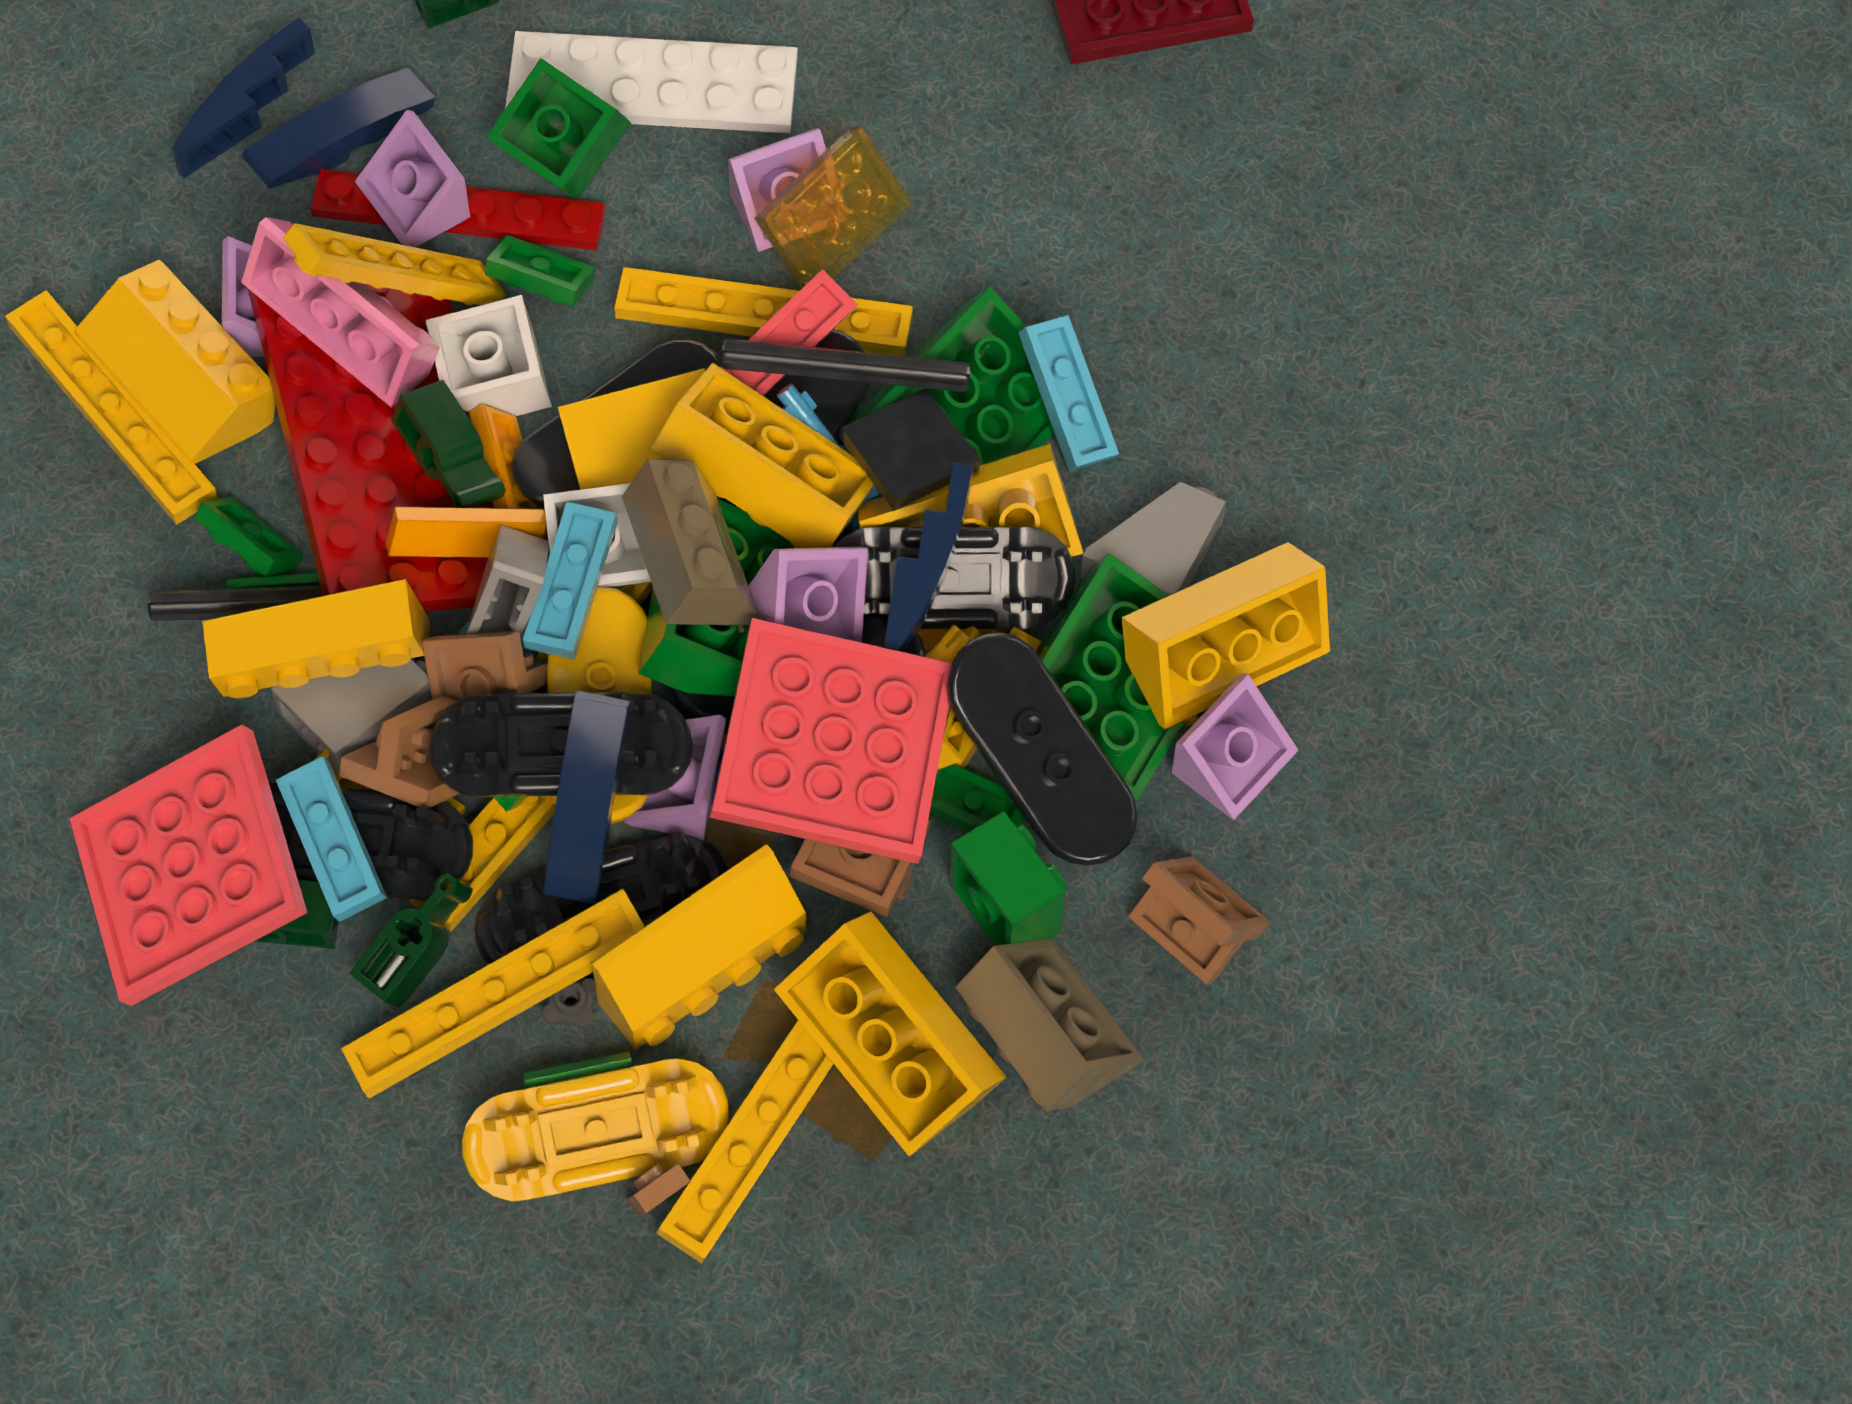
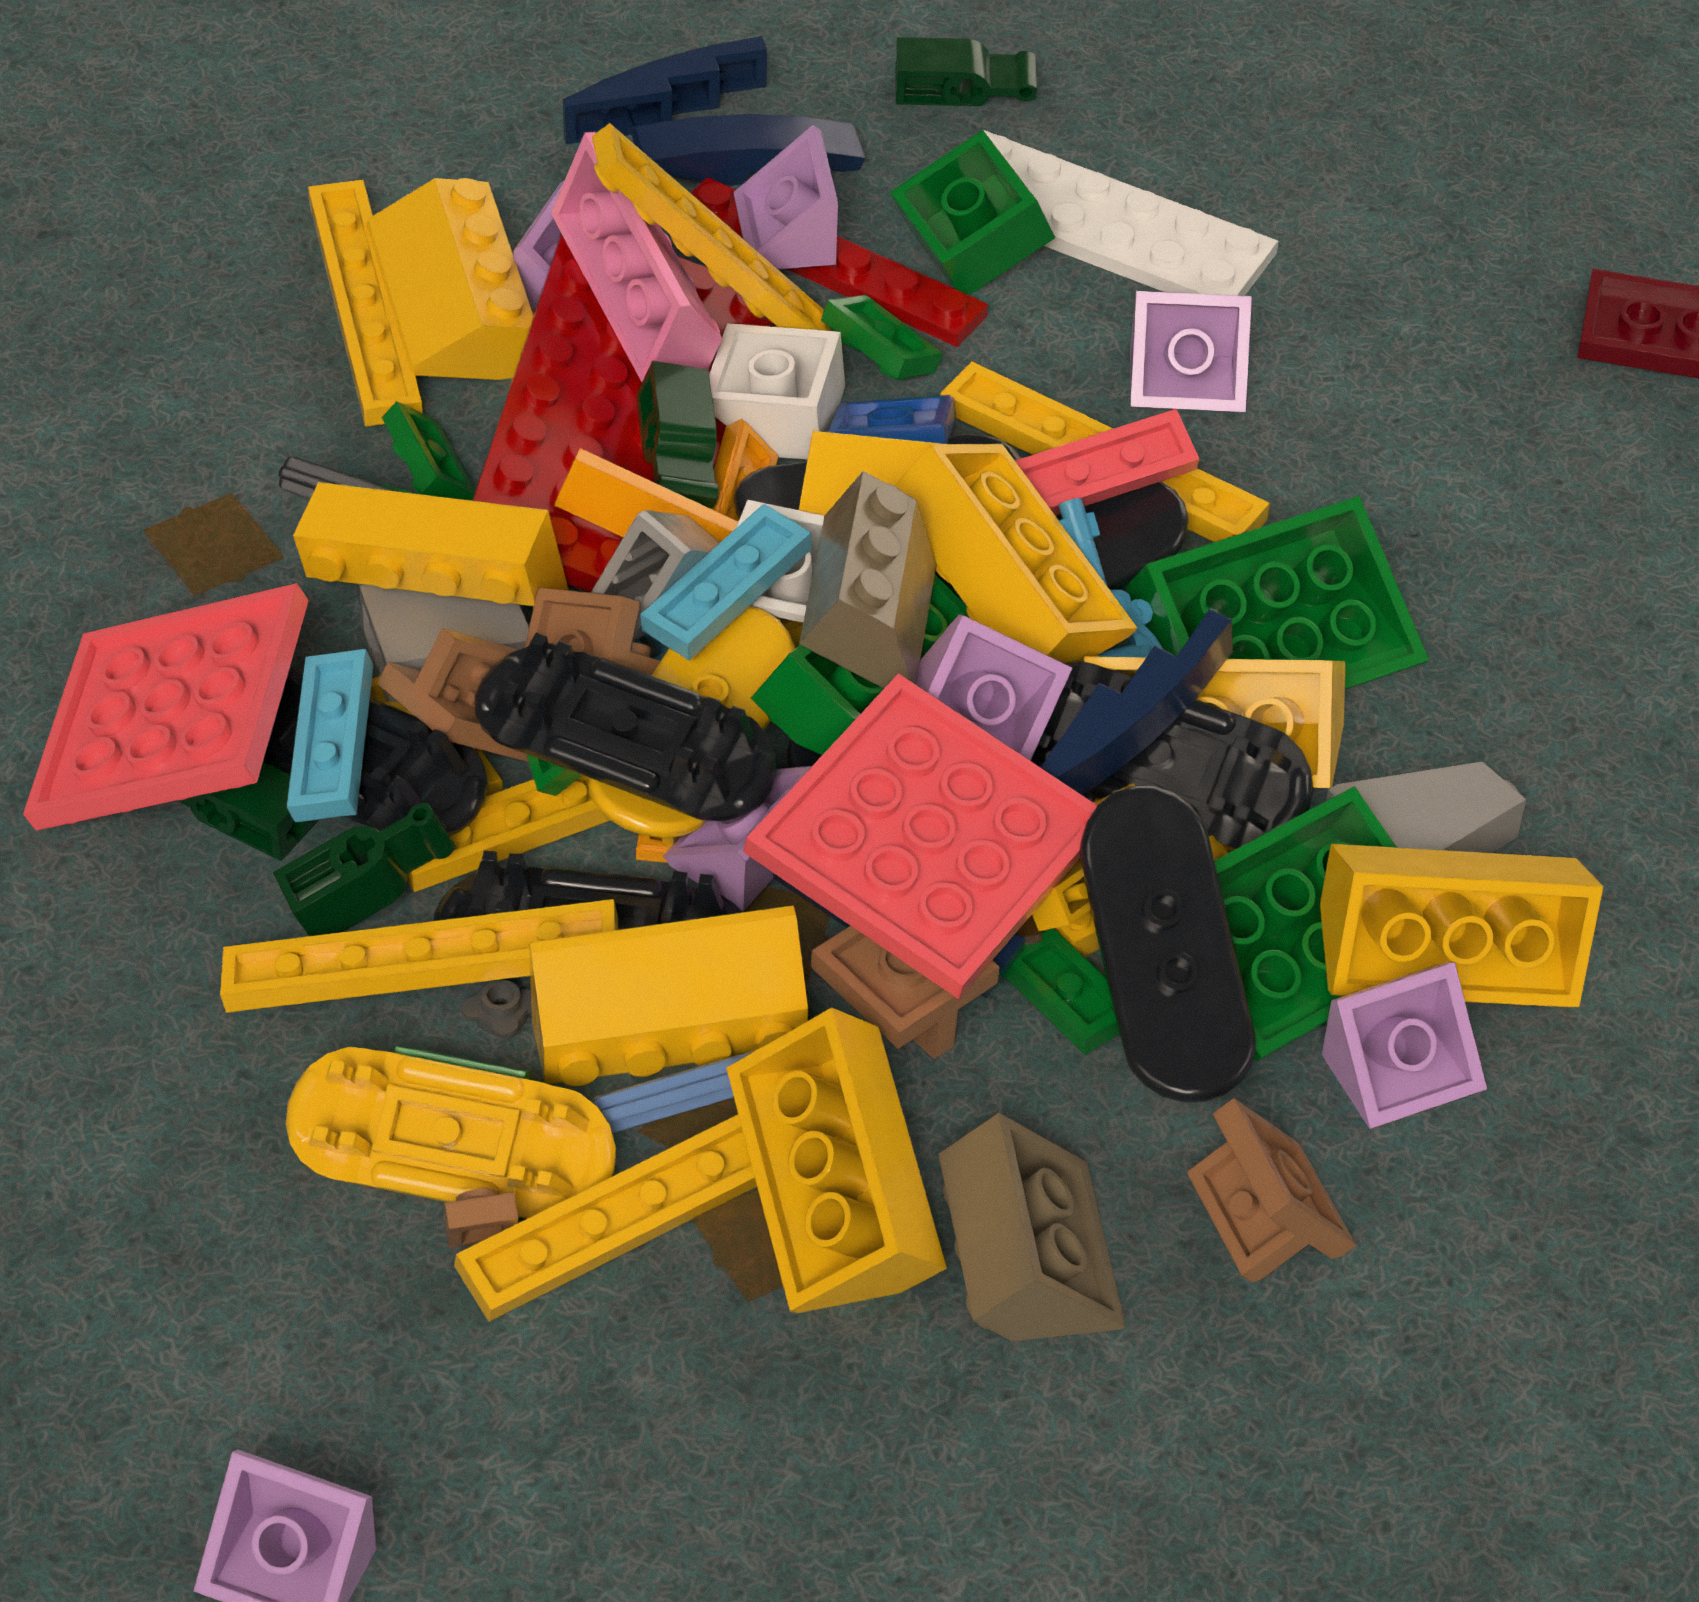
camera: 25 degrees right, 15 degrees down
(118, 687) = (213, 544): none -> clear orange piece
(586, 796) = (616, 775): dark blue slope -> none
(596, 357) = (904, 418): none -> blue tile
(742, 1013) = (667, 1095): none -> medium blue axle
(833, 208) = (1234, 380): clear yellow plate -> none
(845, 365) = (1153, 504): black axle -> none
(908, 448) = (1168, 597): black tile -> none
(1007, 883) = (1056, 1065): green brick -> none
(1068, 393) = (1400, 638): medium azure plate -> none

